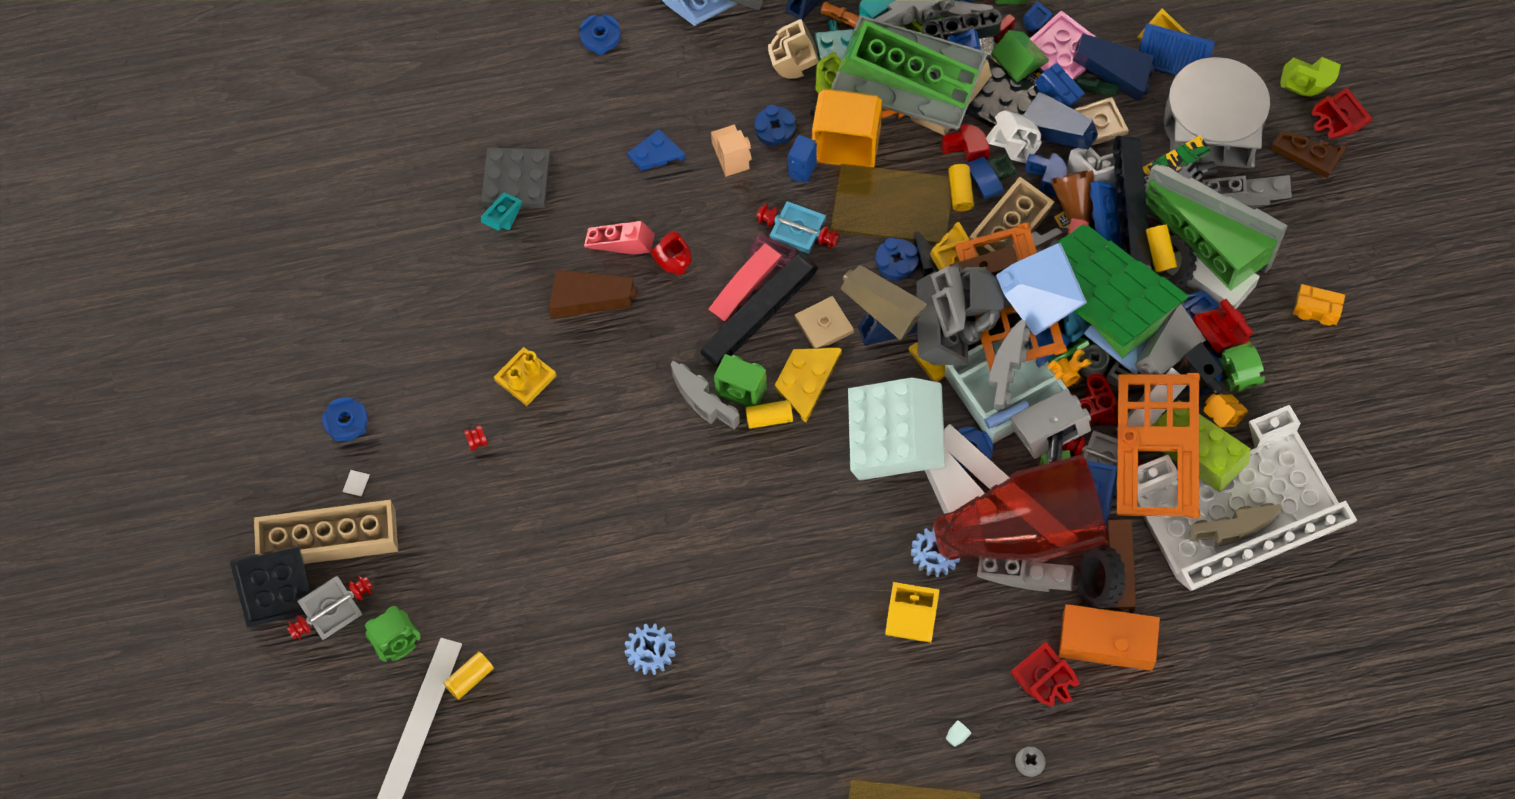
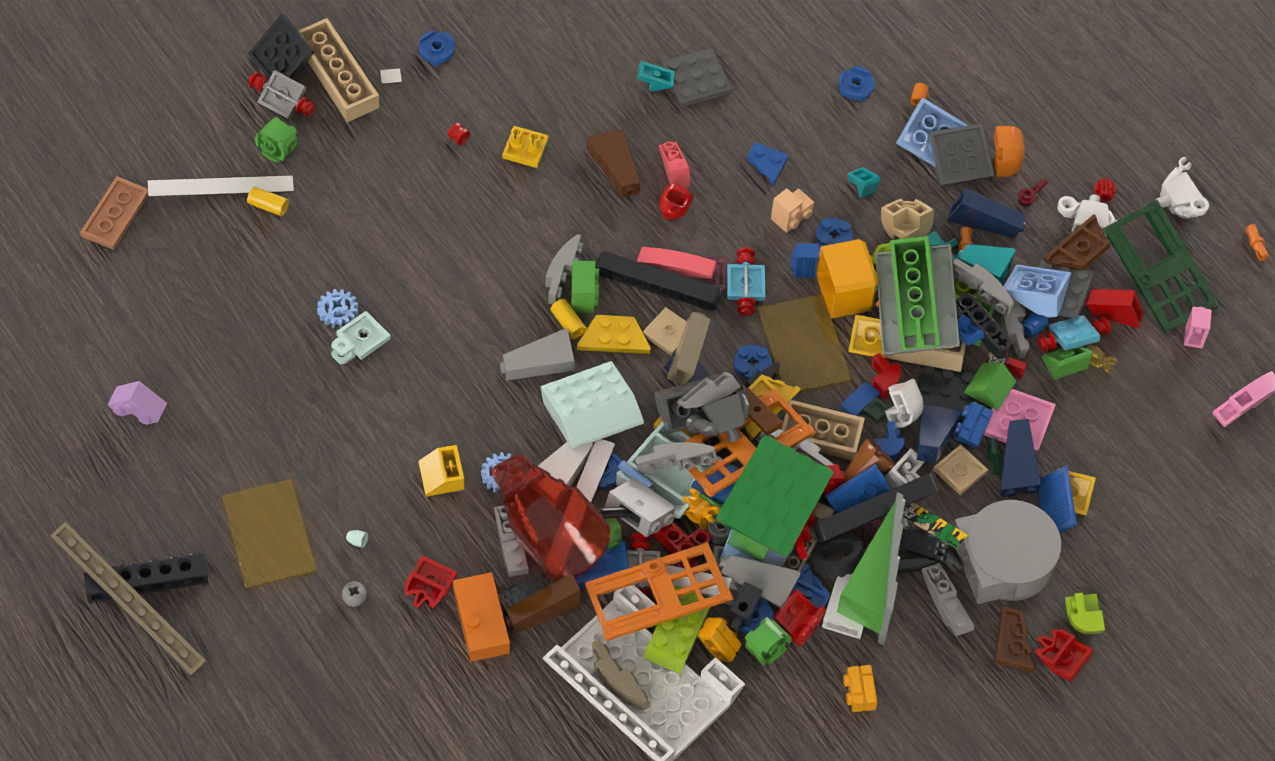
camera: 60 degrees right, 5 degrees down
(703, 649) = (351, 342): none -> light aqua plate
(723, 70) = (865, 180): none -> teal slope
(807, 455) = (541, 357): none -> light grey slope
(914, 141) = (866, 336): none -> yellow slope
(961, 187) = (840, 385): yellow pin -> none
(1036, 18) = (1039, 388): blue plate -> none
(1042, 288) = (746, 448): light blue slope -> none
(1161, 248) = (843, 540): yellow pin -> none

